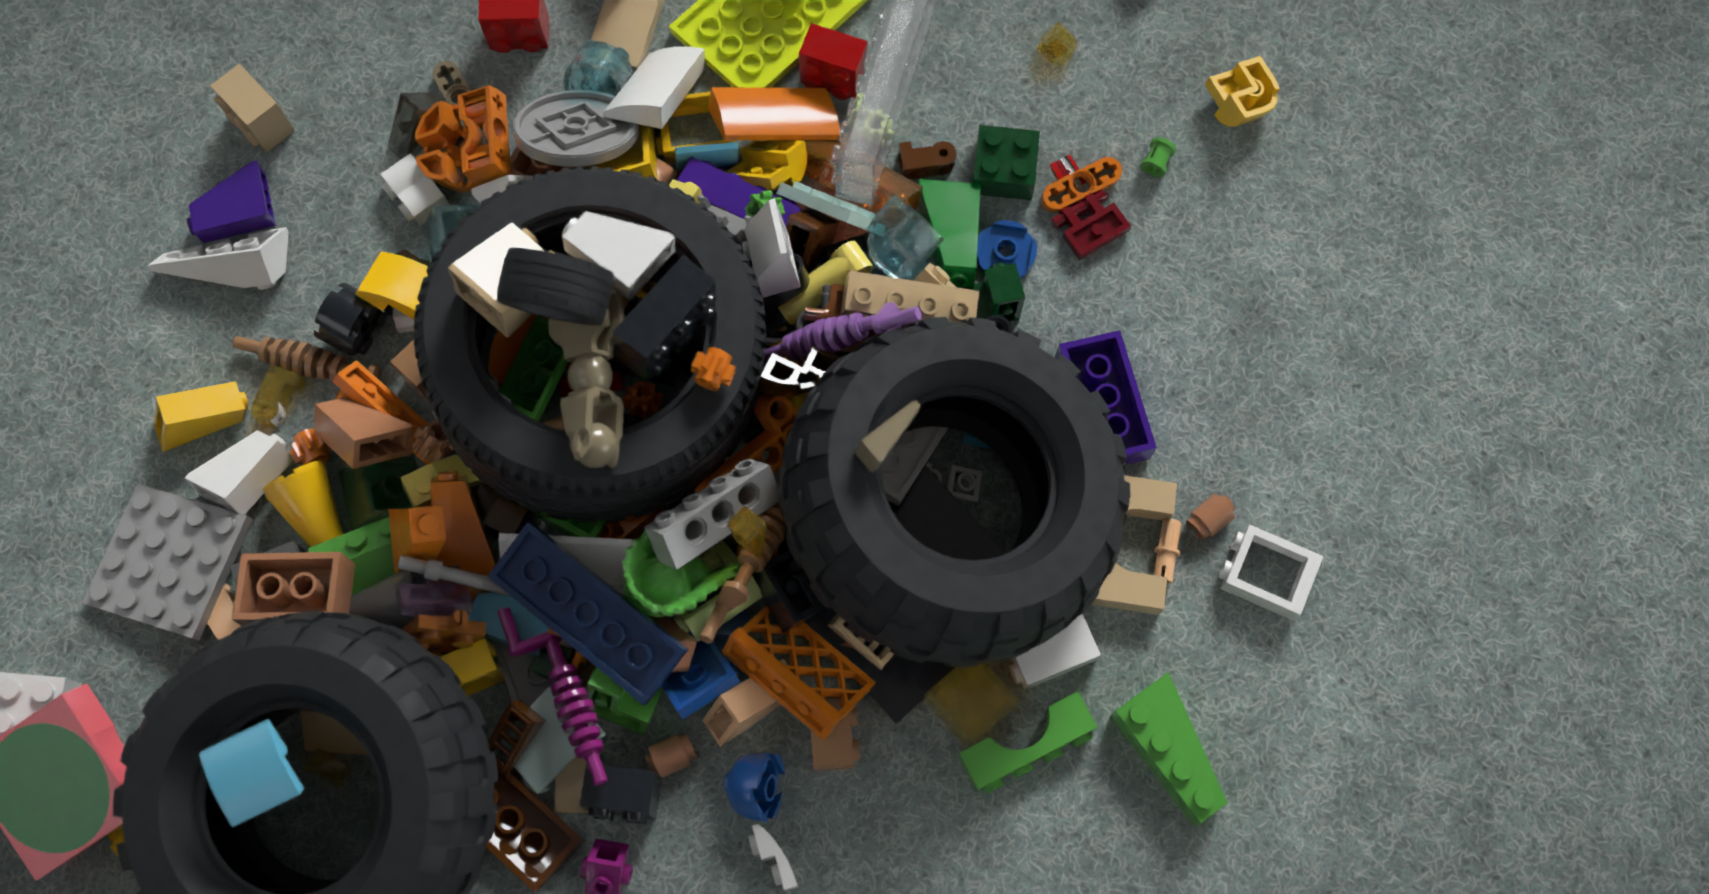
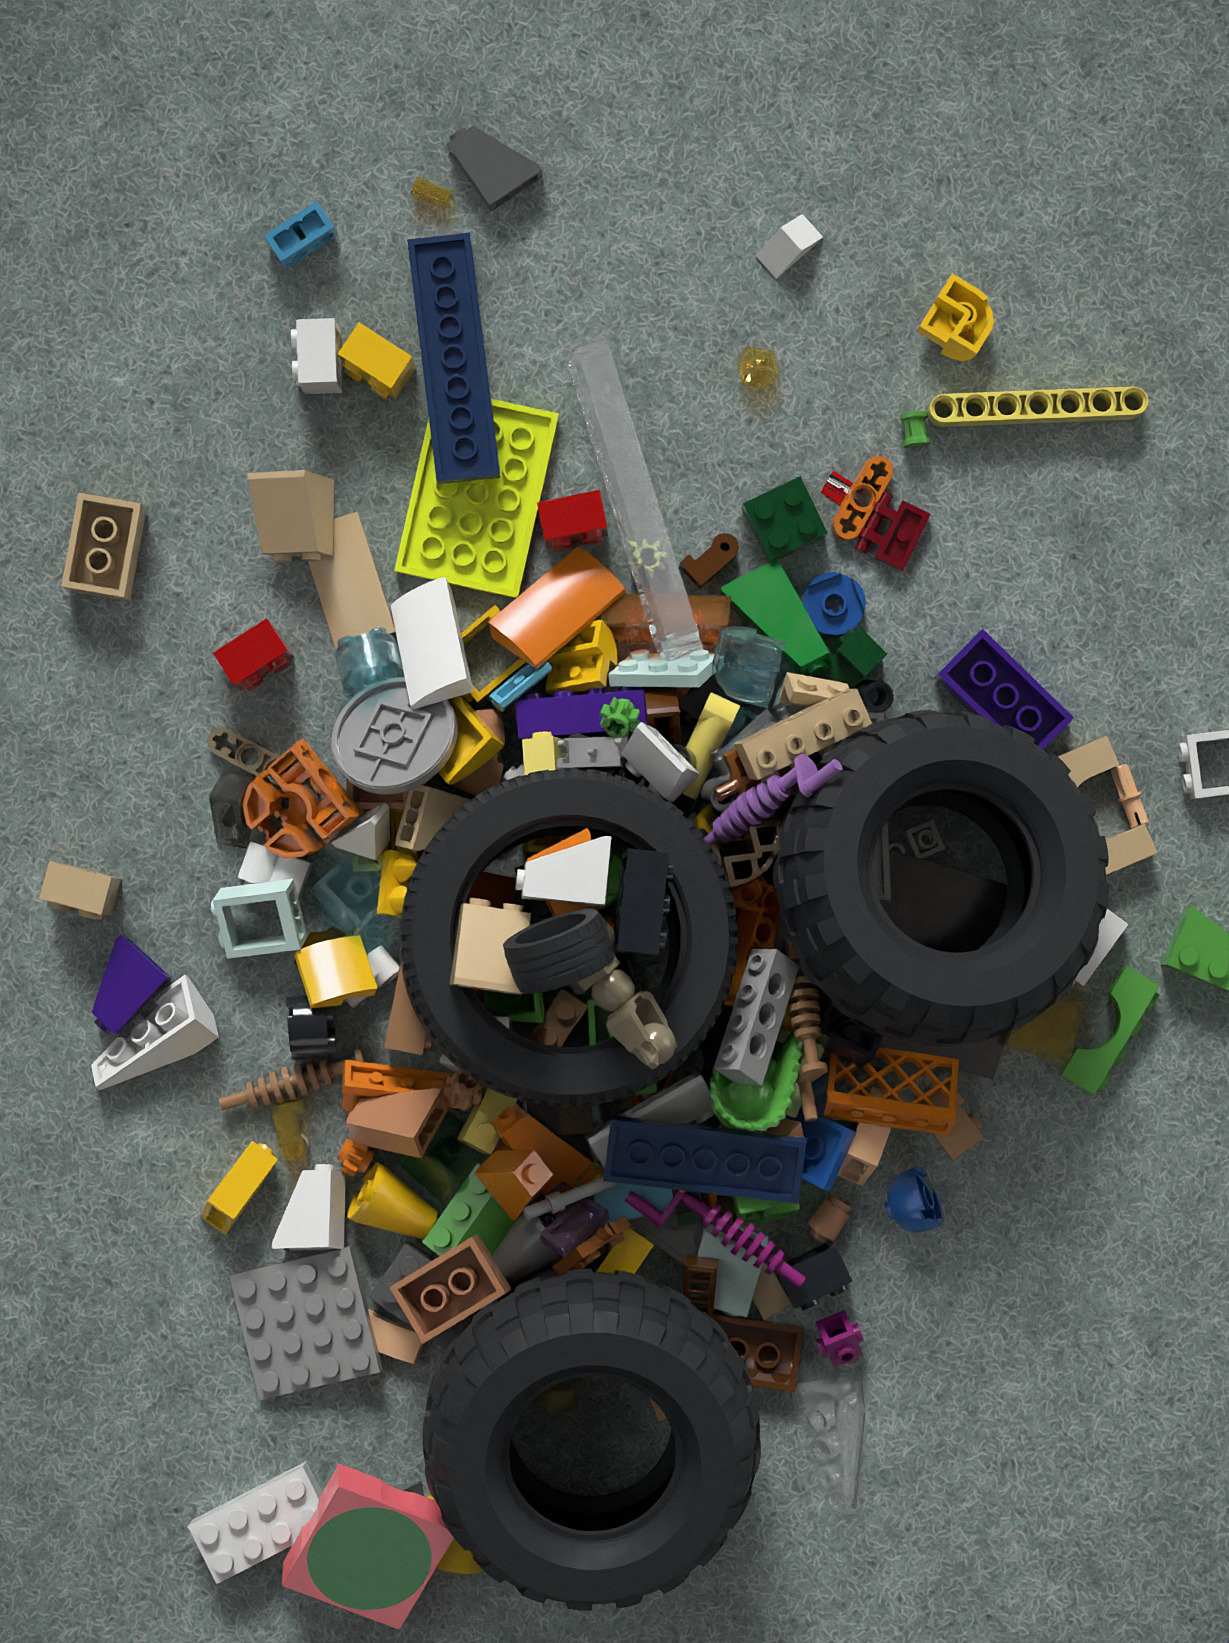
camera: 30 degrees left, 15 degrees up
(250, 773) = (562, 1457): medium azure slope -> none
(401, 206) = (289, 912): none -> light aqua window
(713, 369) = (702, 917): orange gear -> none
(748, 531) = (796, 1015): clear yellow slope -> none
(766, 846) = (955, 1243): white slope -> none
(878, 444) = (883, 898): dark tan slope -> none
(1211, 516) = (1149, 742): nougat brick -> none
(1287, 195) = (1050, 399): none -> light yellow beam

